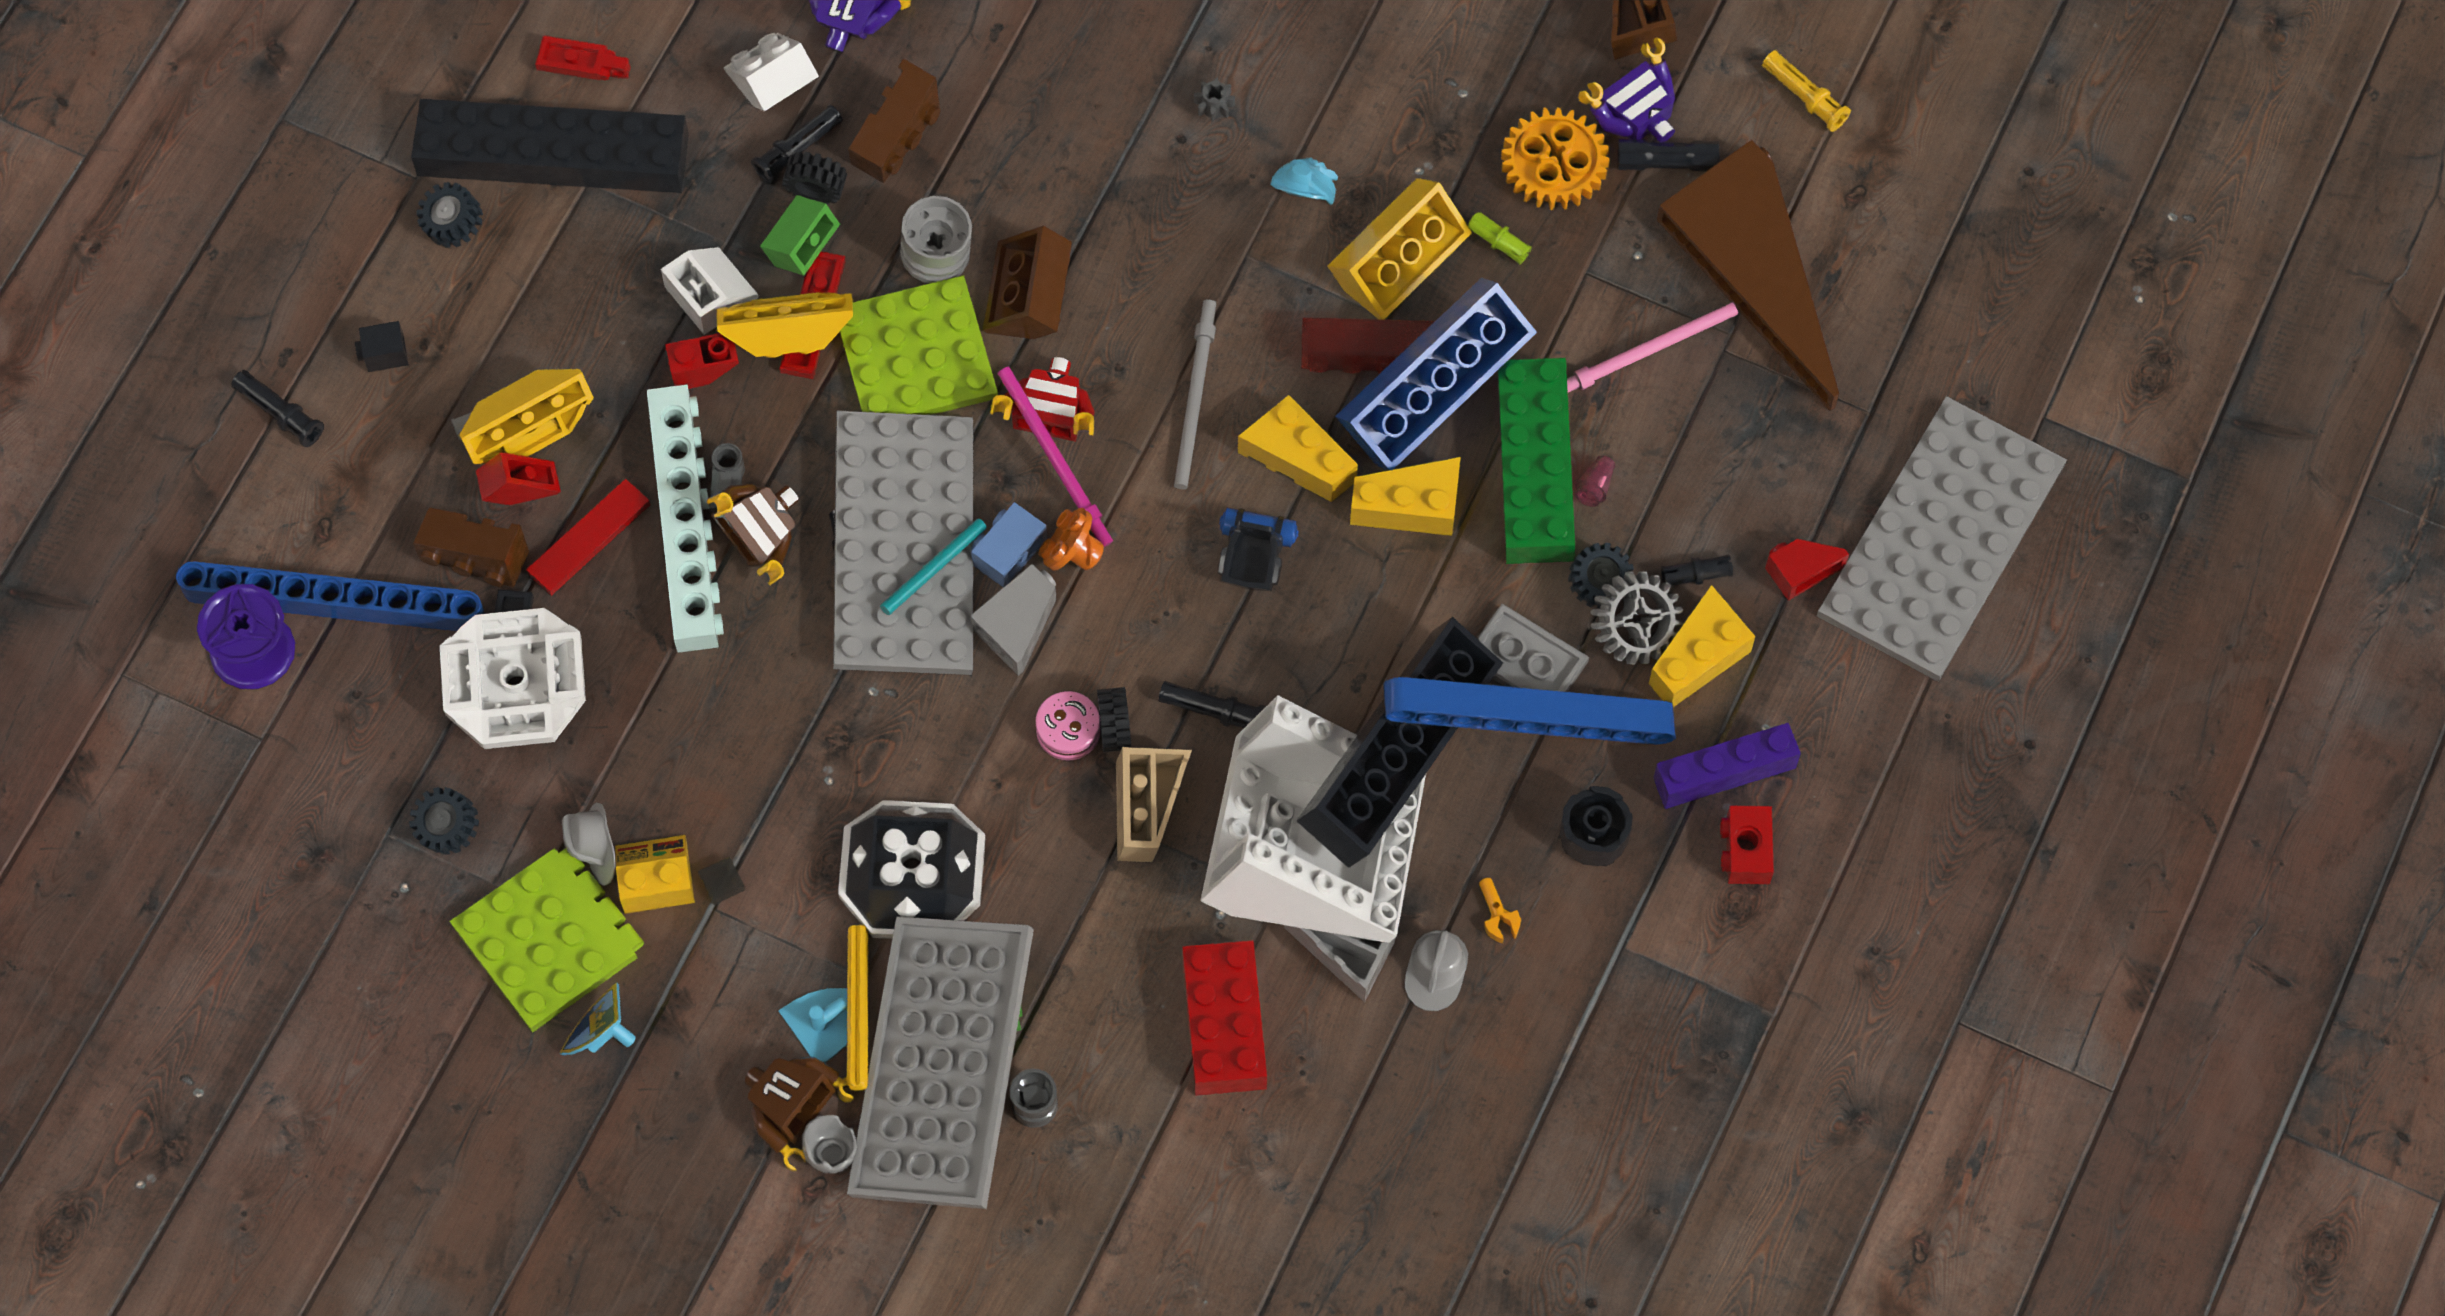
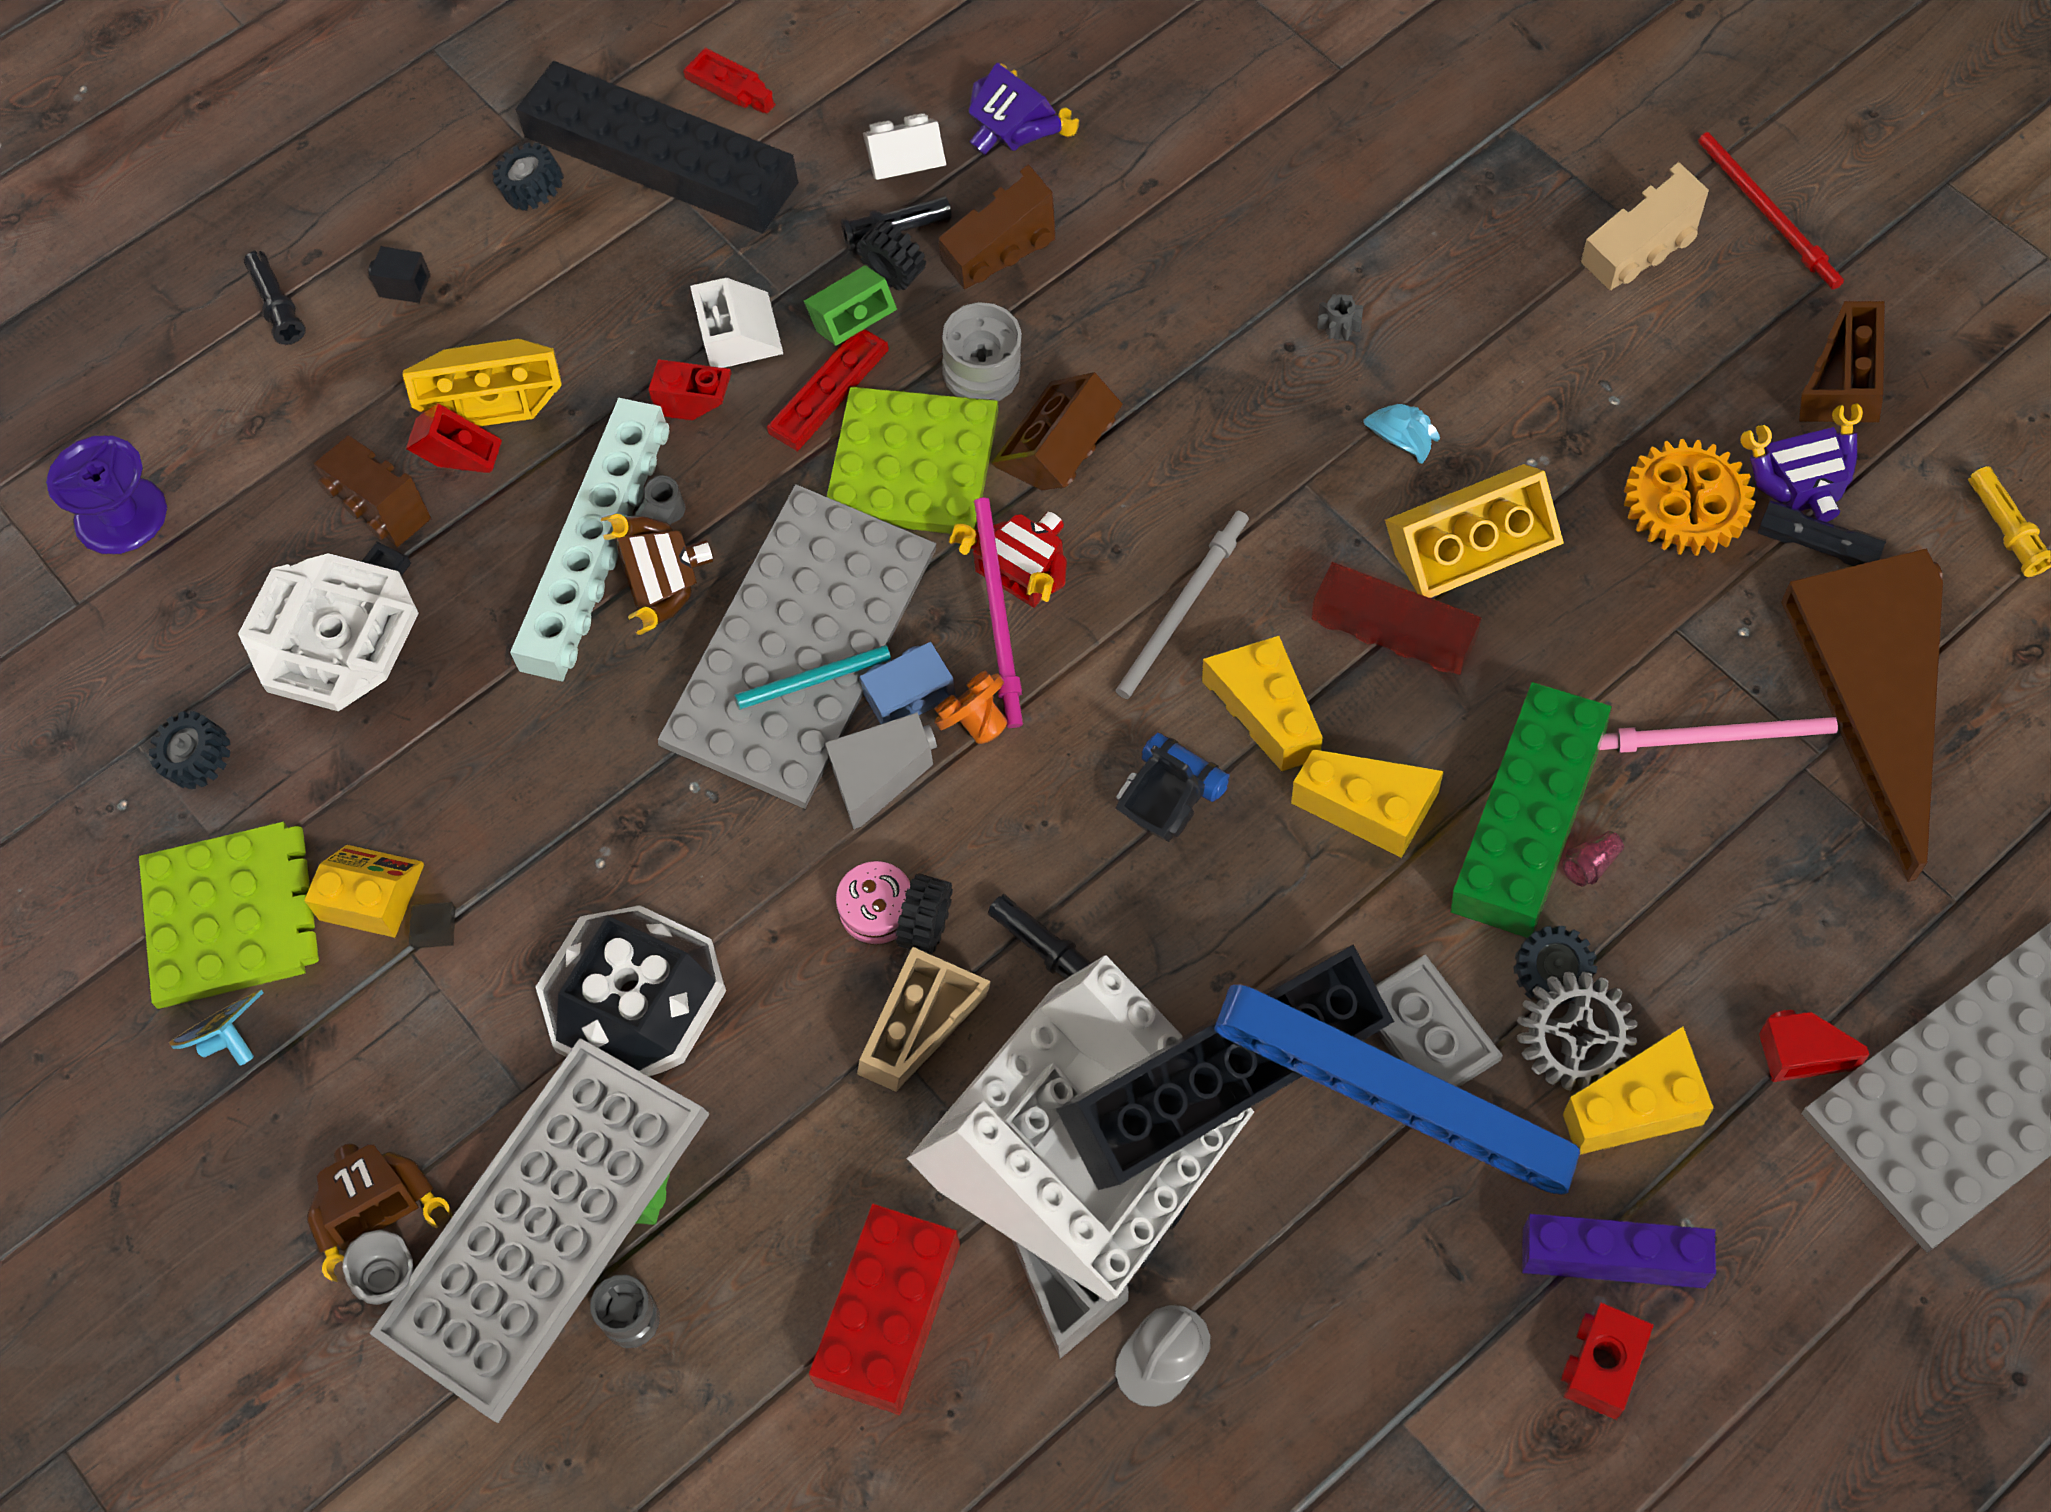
camera: 30 degrees right, 5 degrees down
(349, 592) = (220, 490): blue beam -> none
(588, 537) = (492, 523): red tile -> none
(589, 841) = (308, 823): light grey piece -> none
(786, 323) = (783, 381): yellow wedge -> none
(819, 1021) = (458, 1124): medium azure shield -> none
(857, 1008) = (490, 1125): yellow axle -> none
(1436, 374) = (1454, 670): blue brick -> none
(1498, 912) = (1266, 1315): light orange bar -> none
(1499, 237) = (1591, 558): lime axle -> none
(1593, 845) = (1419, 1235): black brick -> none
(1697, 570) = (1674, 1005): black pin -> none

